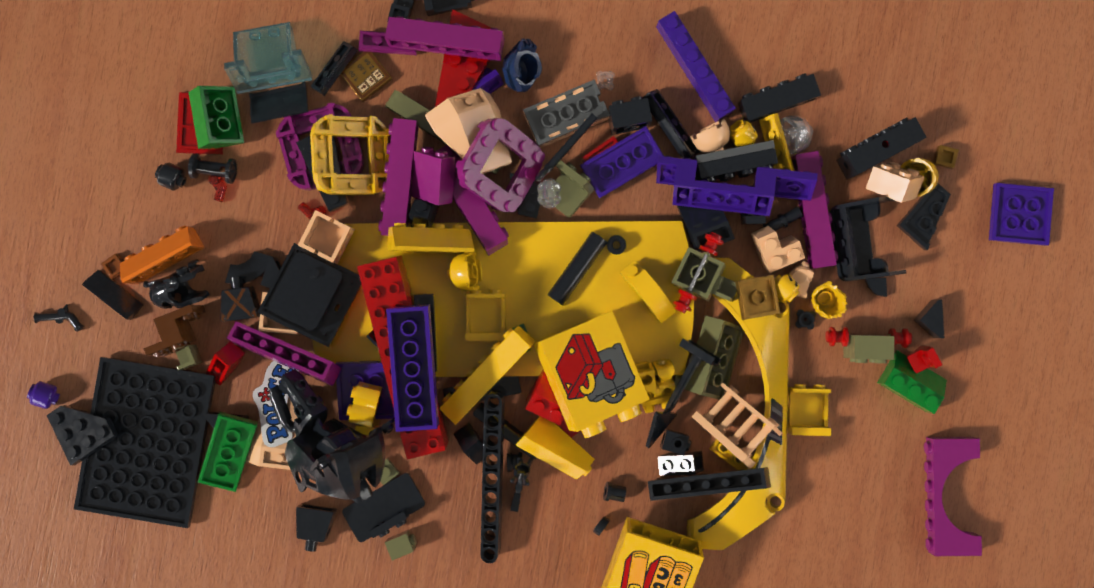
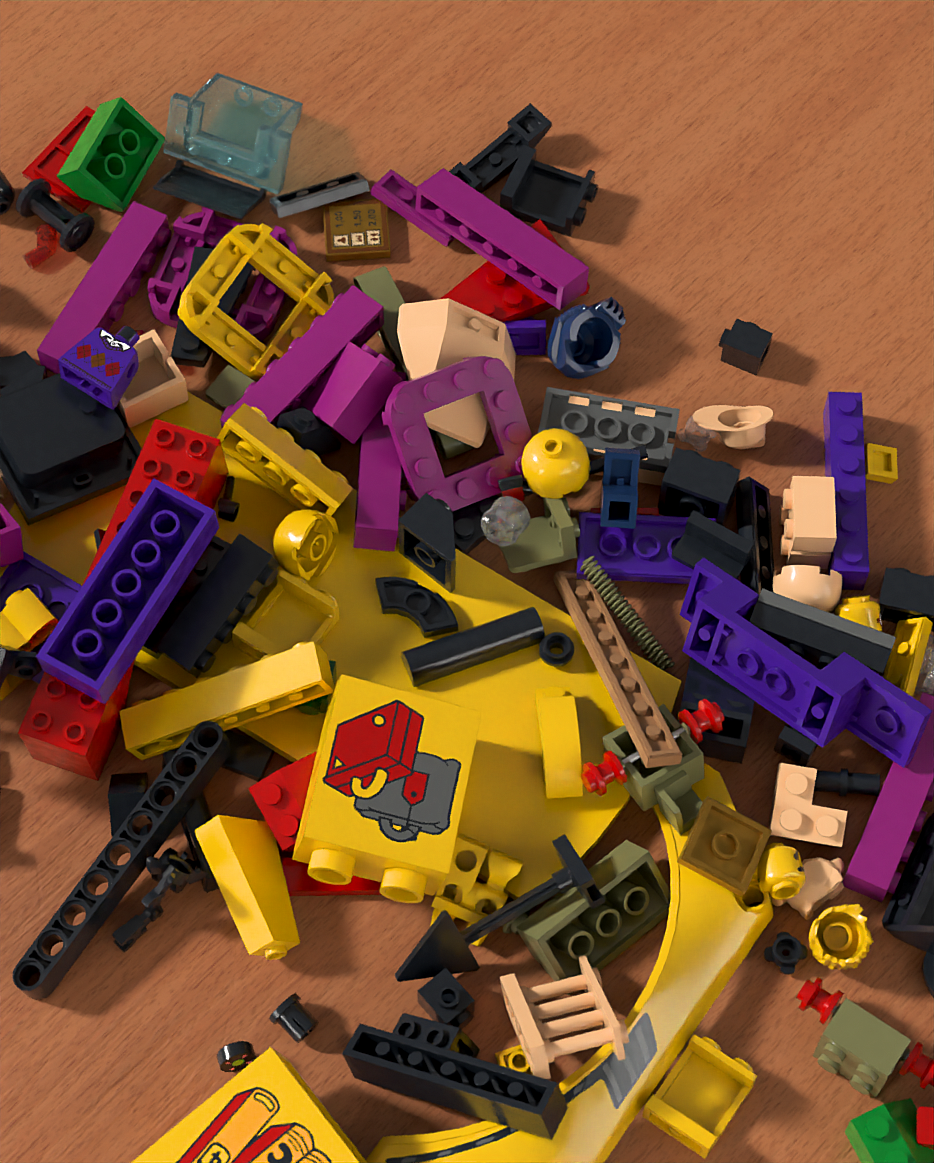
camera: 30 degrees right, 25 degrees down
(268, 193) = (108, 282): none -> magenta brick
(307, 248) = (102, 364): none -> dark purple torso
(370, 209) = (228, 387): none -> olive panel
(414, 274) = (228, 509): none -> black hand
(449, 330) = (219, 606): none -> black wedge
(525, 231) = (429, 540): none -> black slope
(536, 263) = (417, 603): none -> black tile
(556, 151) = (555, 463): none -> yellow cylinder
(595, 145) = (619, 488): none -> dark blue brick
(599, 16) = (745, 346): none -> black brick
(621, 65) = (736, 425): none -> light nougat piece
(636, 205) = (625, 615): none -> olive piece
(655, 241) = (618, 671): none -> medium nougat tile
(656, 145) = (713, 542): none -> black panel
(691, 98) = (808, 521): none -> light nougat piece
(703, 40) = (880, 463): none -> yellow plate

